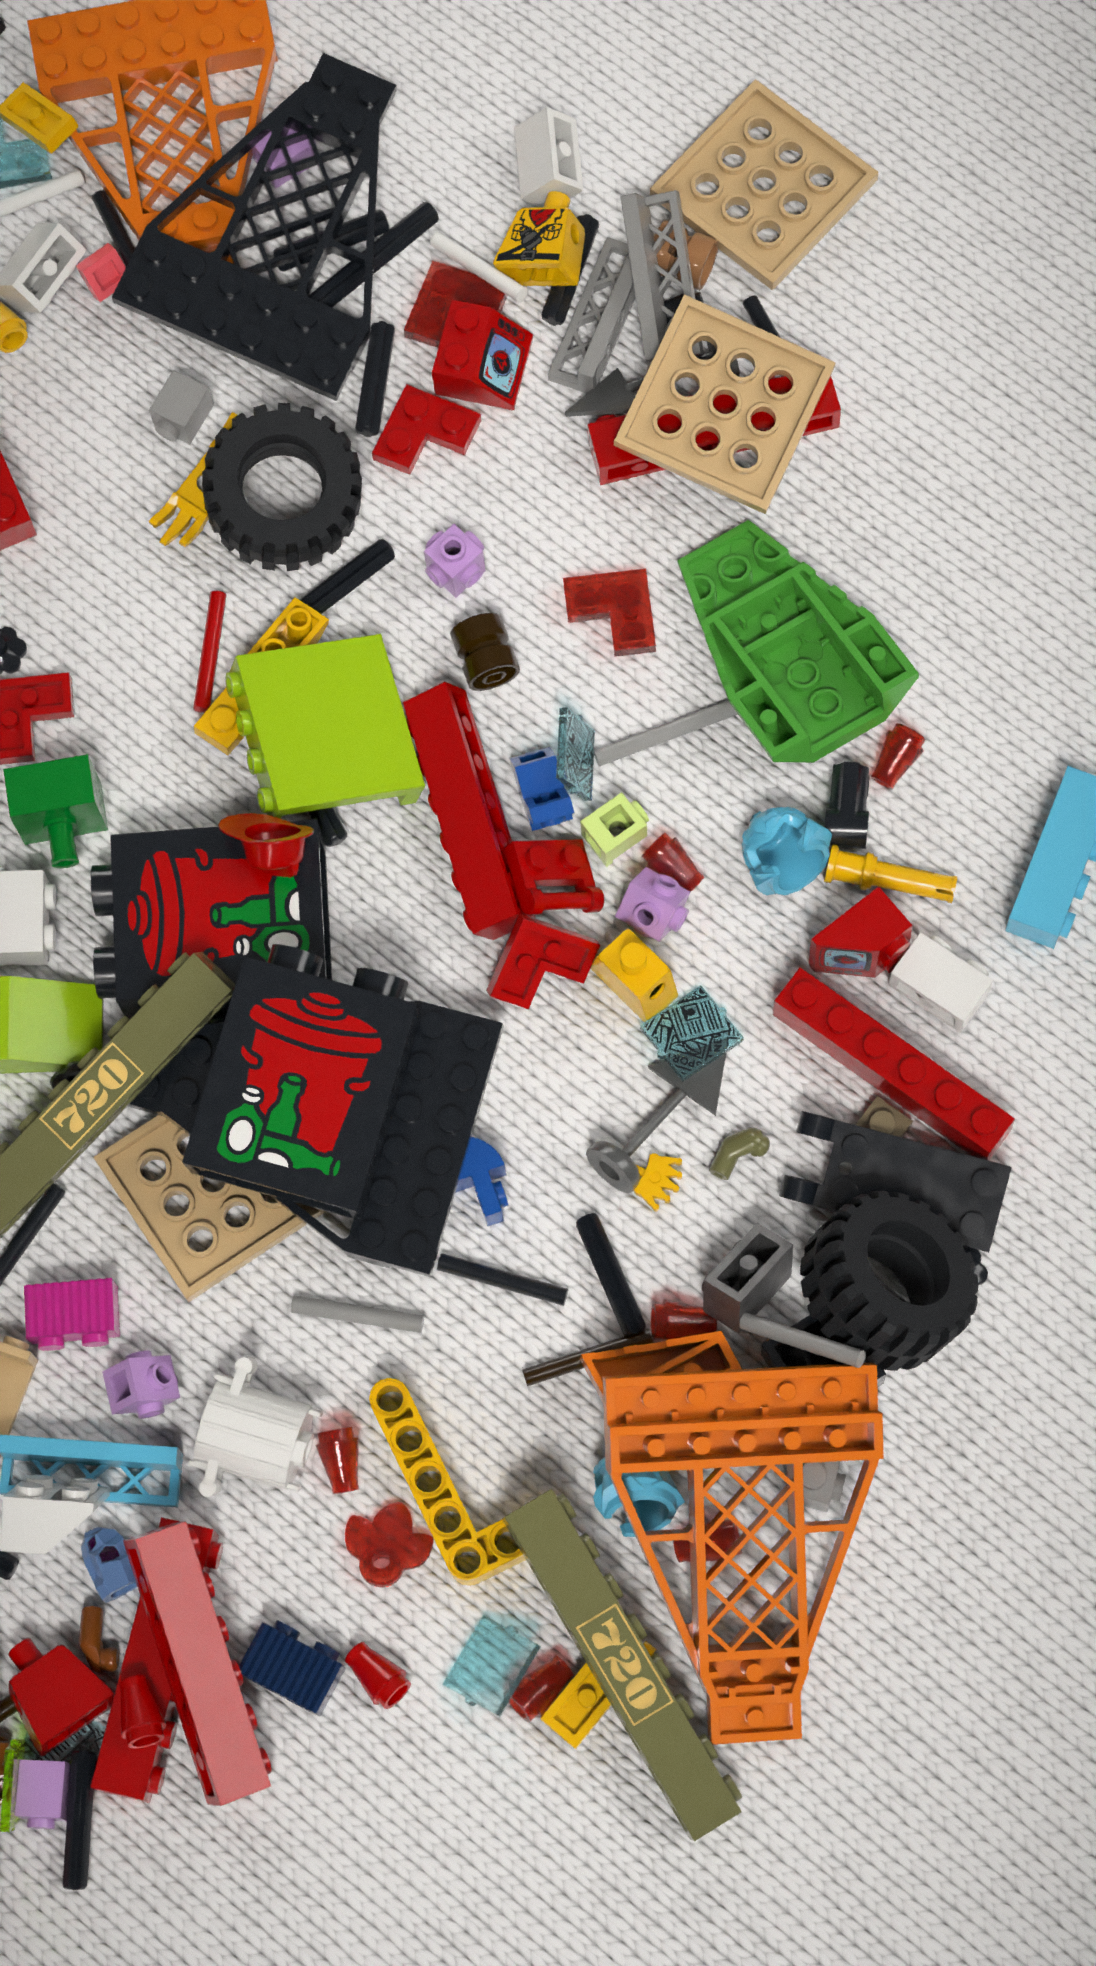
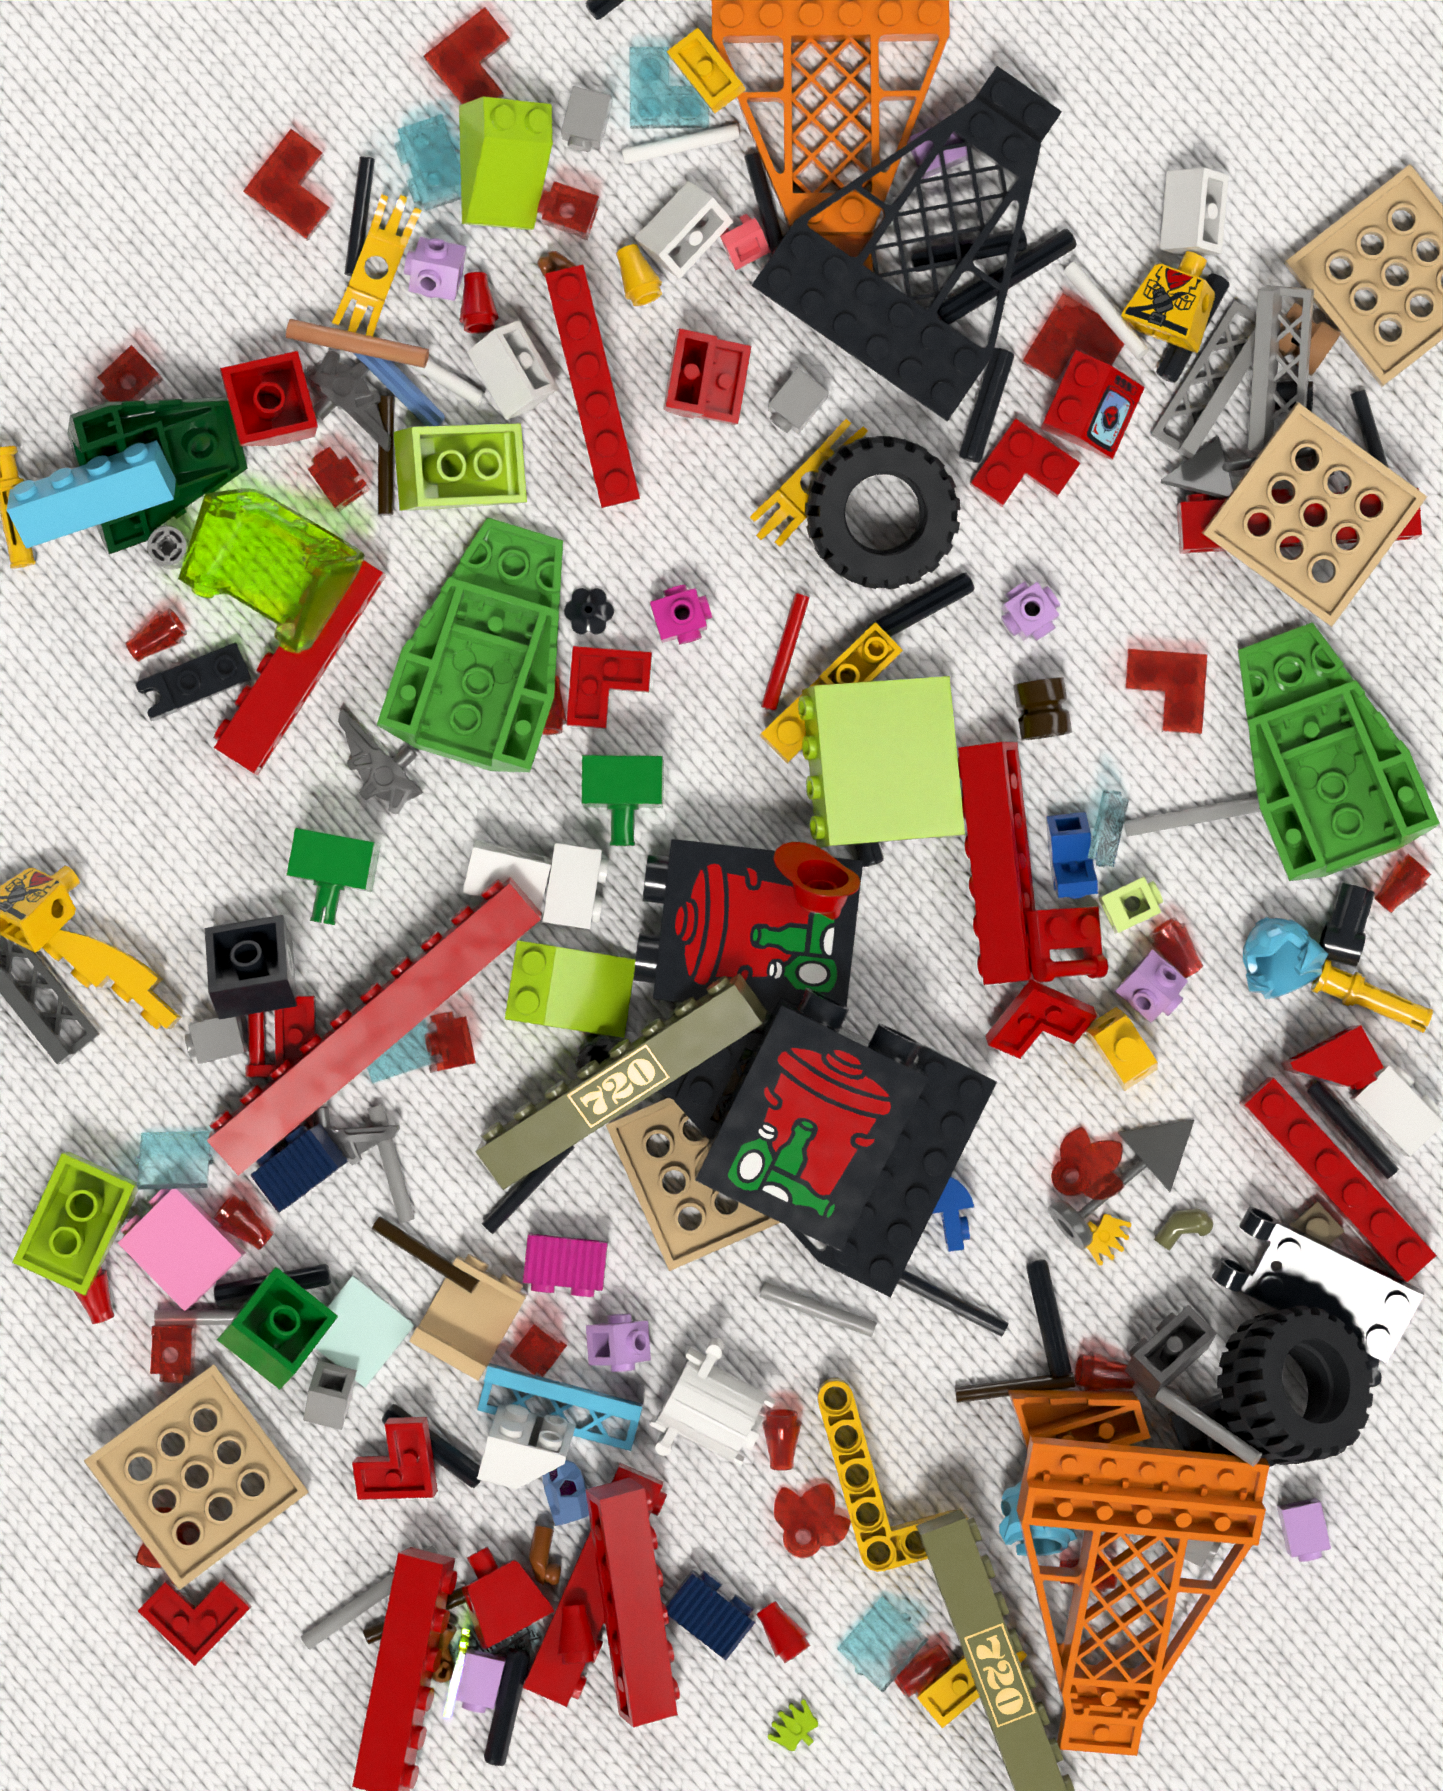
camera: 10 degrees right, 15 degrees up
(54, 1410) = (538, 1350): none -> clear red brick
(82, 401) = (706, 377): none -> red brick
(92, 629) = (673, 601): none -> dark pink brick
(412, 1783) = (794, 1728): none -> lime piece
(625, 1102) = (1094, 1164): none -> clear red plate
(691, 1033) = (1163, 1109): clear light blue piece -> none
(899, 1017) = (1352, 1130): none -> black bar
(936, 1448) = (1304, 1529): none -> lavender brick

